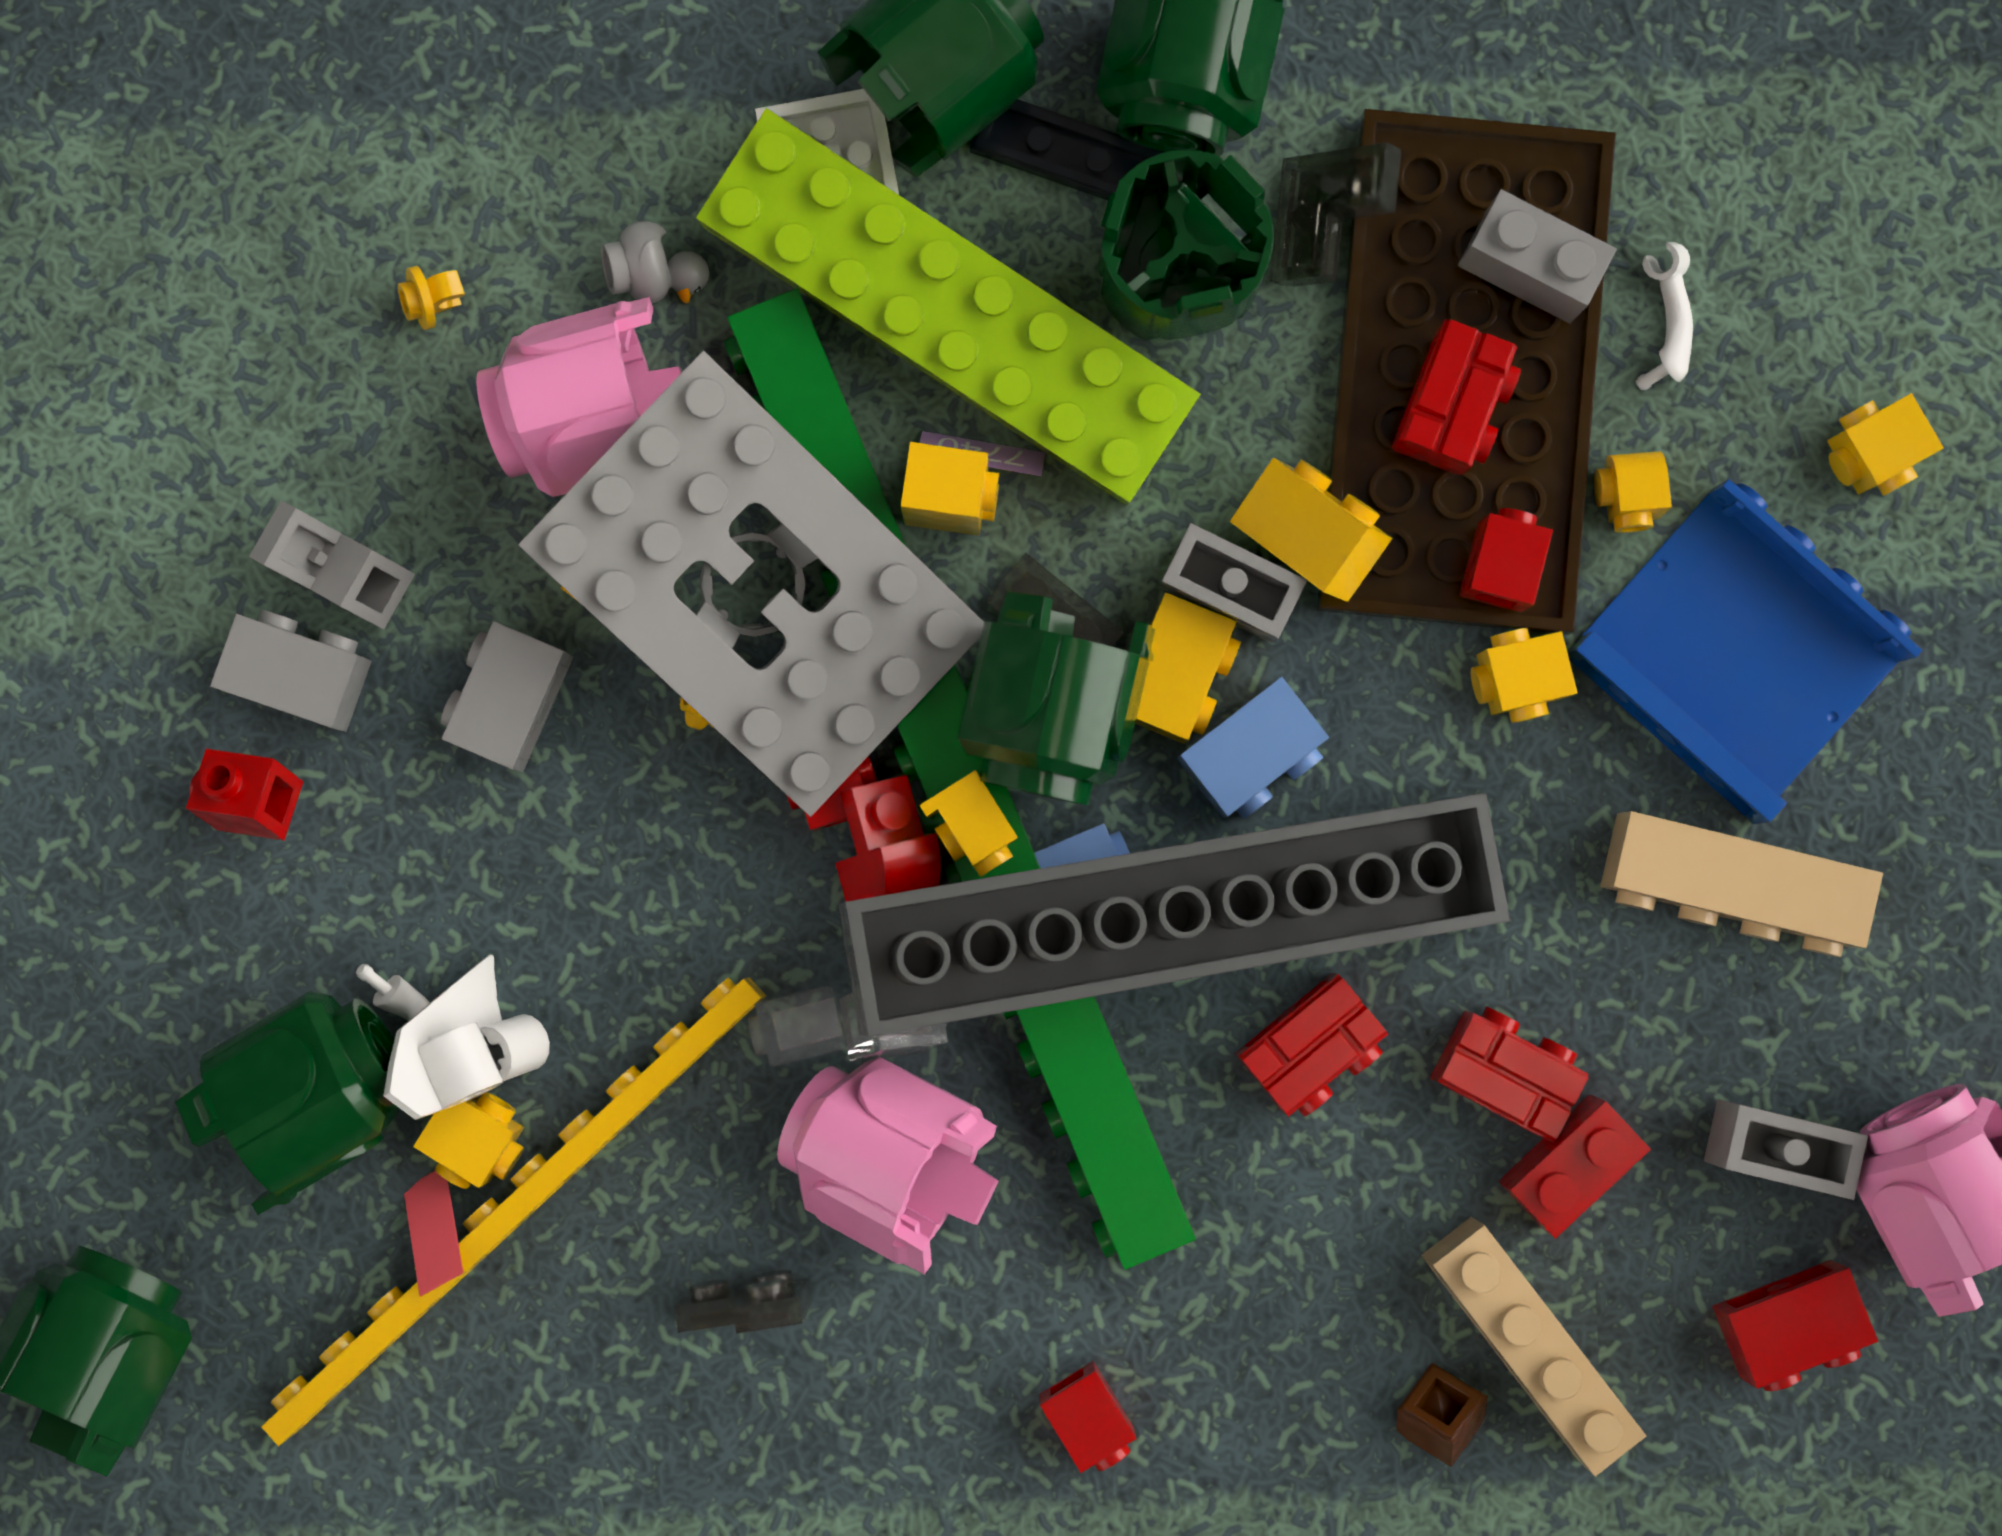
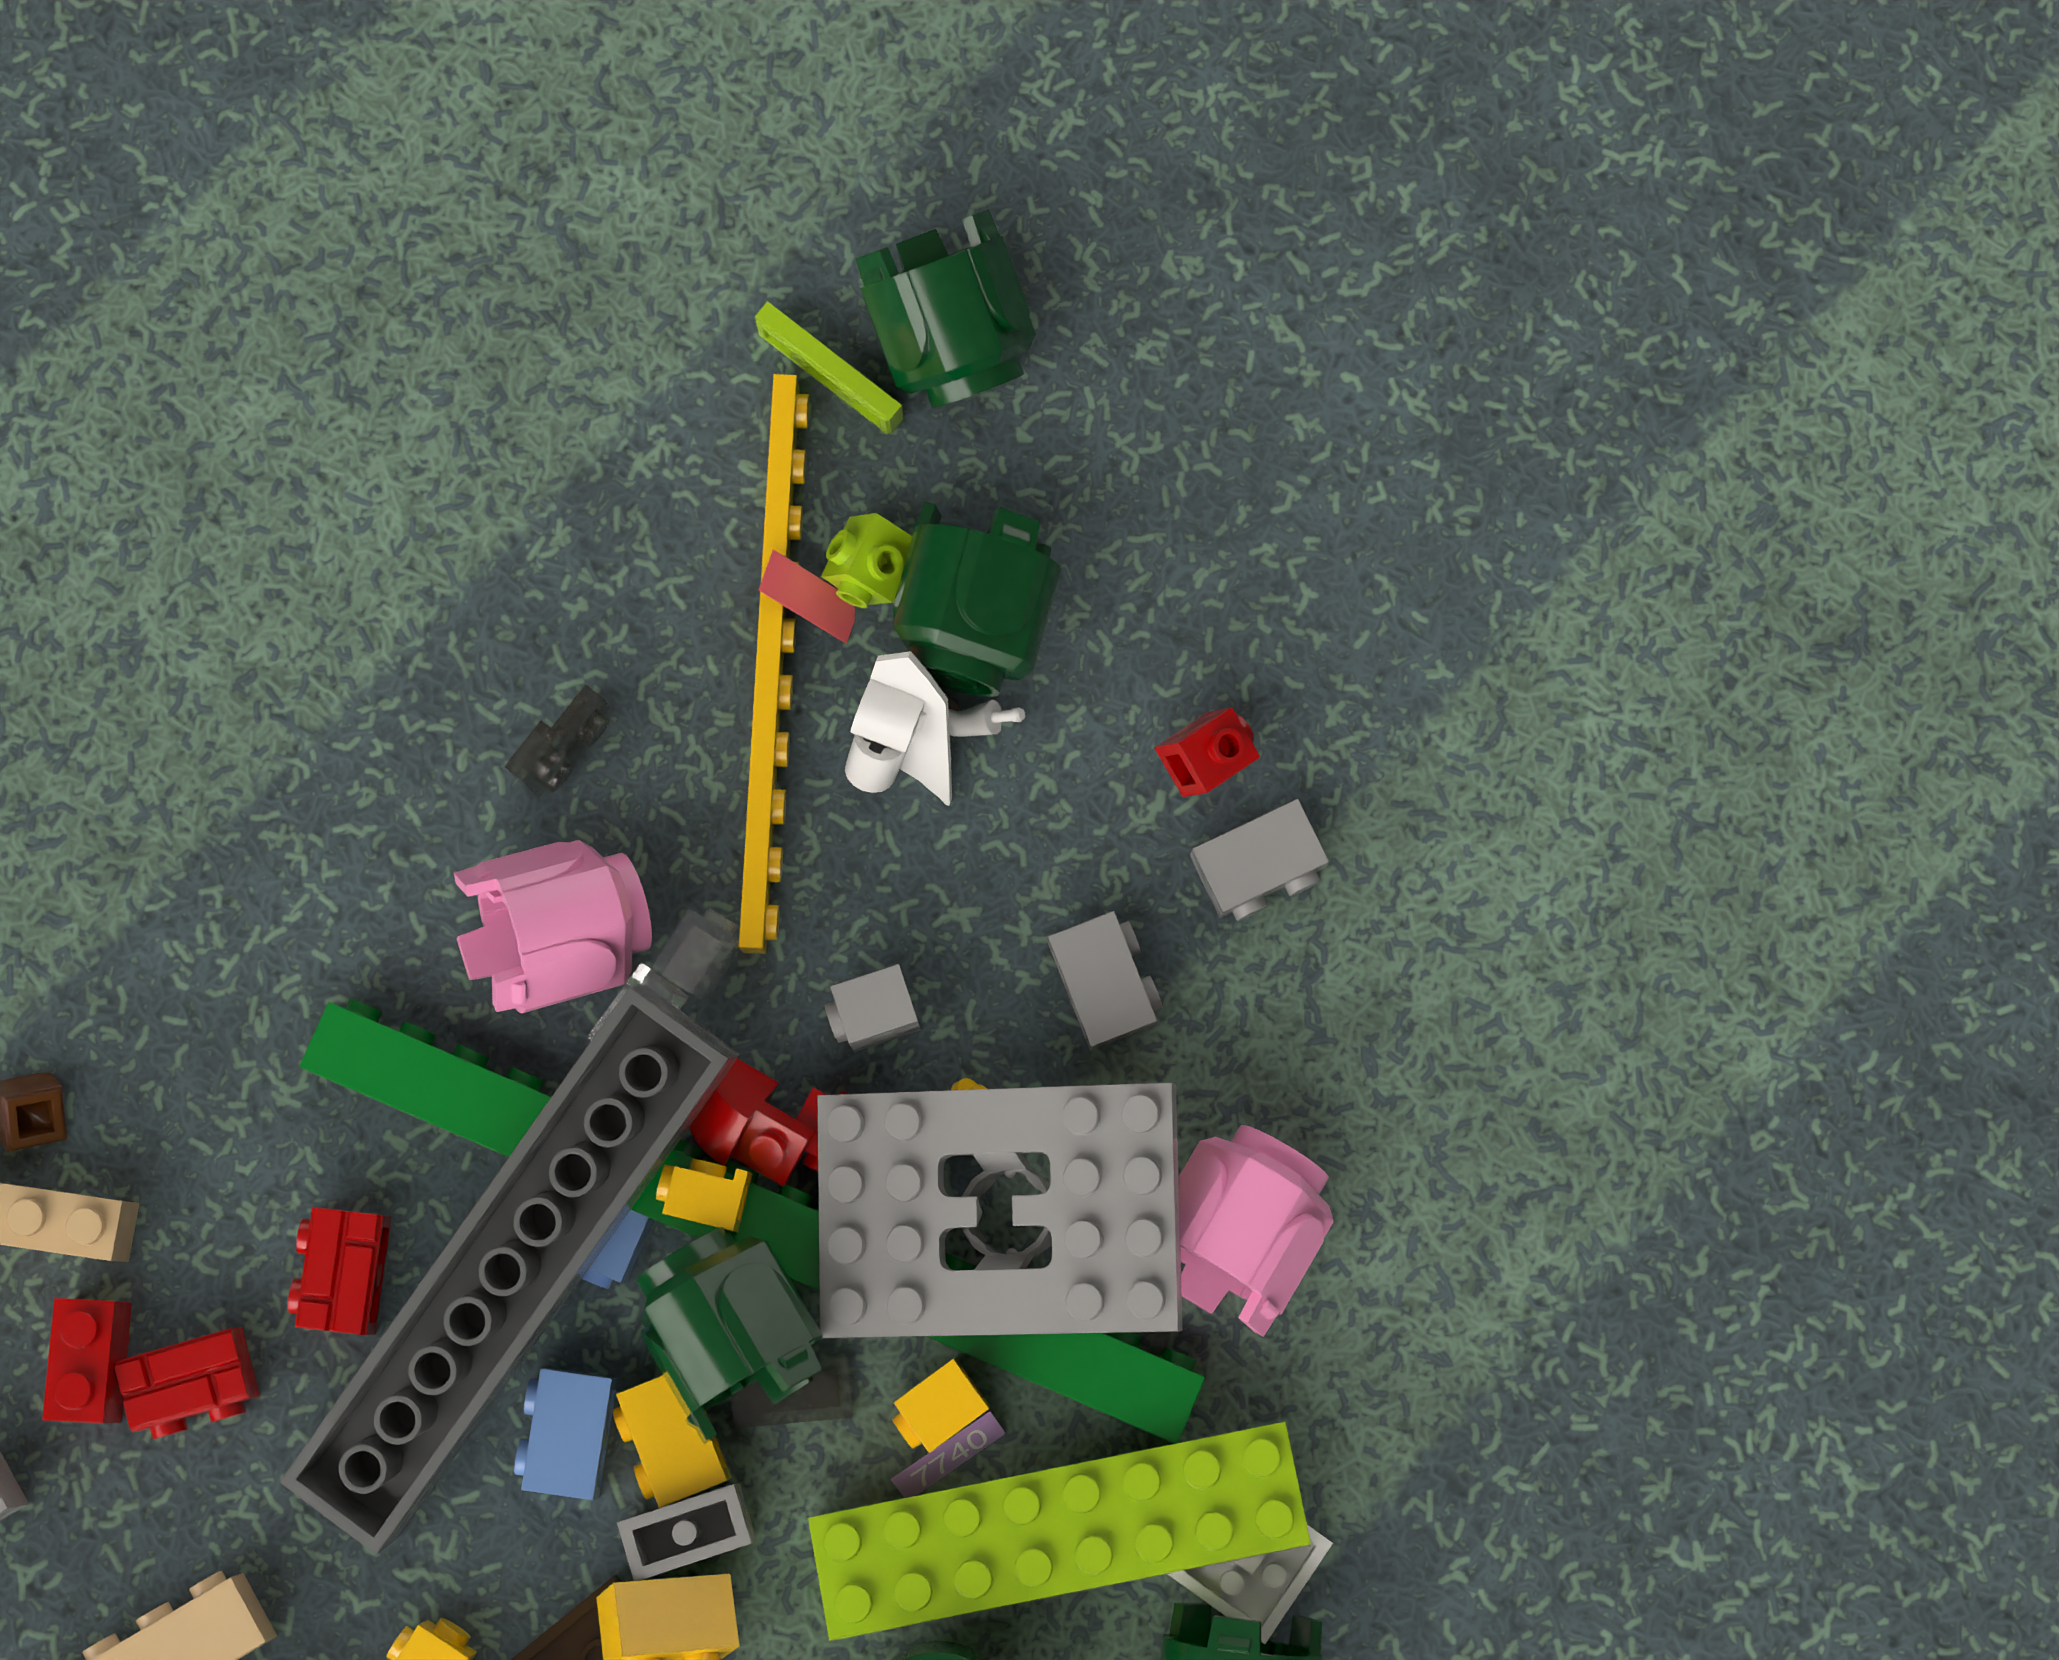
camera: 135 degrees right, 5 degrees down
(233, 1408) = (828, 368): none -> lime tile
(332, 565) = (1299, 954): light grey brick -> none
(355, 1212) = (867, 560): none -> lime brick
(425, 297) = (1426, 1190): yellow plate -> none
(473, 1141) = (837, 675): yellow brick -> none
(640, 265) = (1296, 1355): light grey animal -> none
(702, 844) = (872, 1009): none -> light grey brick
(1088, 1419) = (264, 884): red brick -> none

